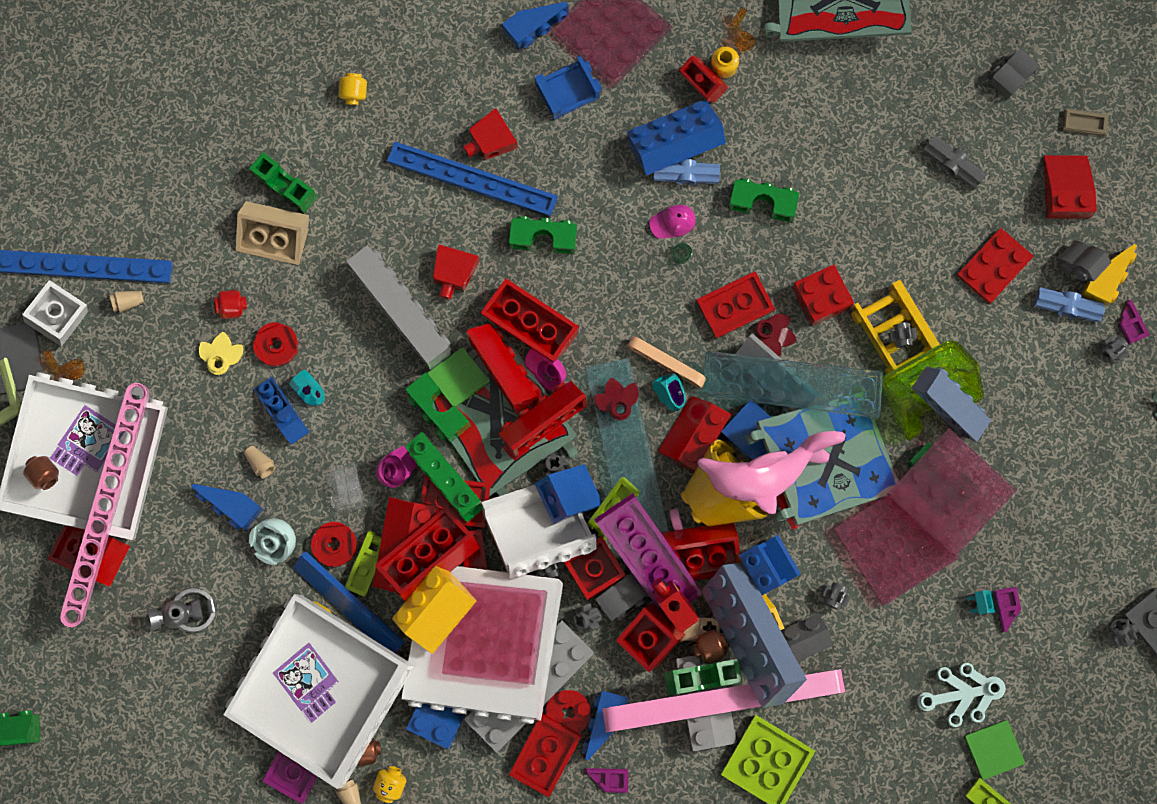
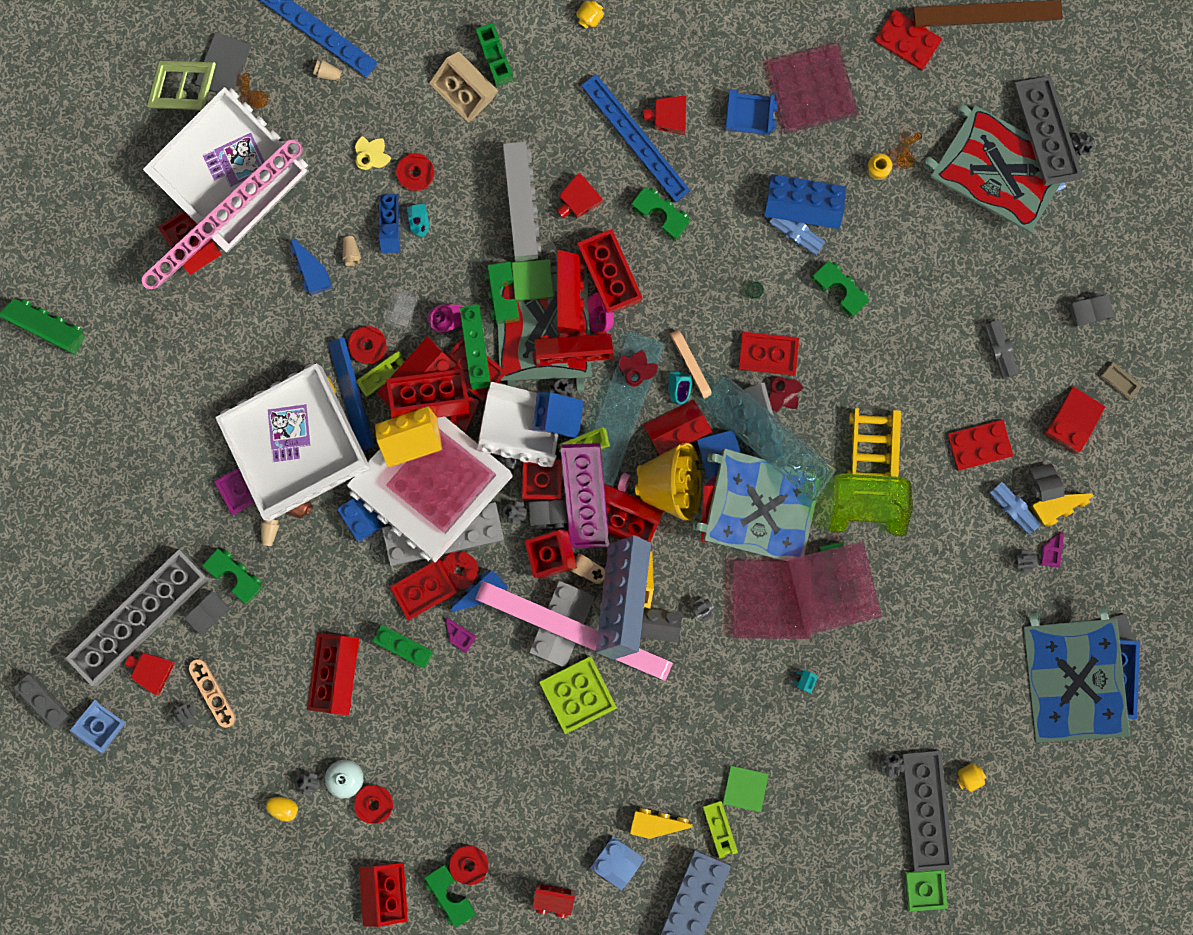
camera: 25 degrees right, 5 degrees up
(41, 472) = (190, 163): copper head -> none
(55, 313) = (269, 49): white brick -> none
(193, 610) = (232, 327): flat silver piece -> none
(229, 304) = (400, 121): red head -> none
(272, 540) = (325, 315): light aqua cylinder -> none
(389, 784) = (301, 540): yellow head -> none
(532, 22) = (751, 45): blue slope -> none
(668, 225) = (757, 262): dark pink cap -> none
(674, 604) = (582, 541): red torso -> none
(702, 677) = (568, 605): green arch -> none
(703, 79) = (854, 169): red brick -> none
(710, 646) = (588, 587): copper head -> none
(769, 474) = (706, 491): bright pink animal -> none
(769, 564) = (669, 557): blue panel -> none
(823, 295) = (837, 386): red brick -> none
(902, 335) = (874, 453): dark grey gear -> none
(951, 403) = (876, 524): sand blue brick -> none
(965, 694) = (750, 736): light aqua plant -> none
(1007, 606) = (823, 695): magenta tile -> none

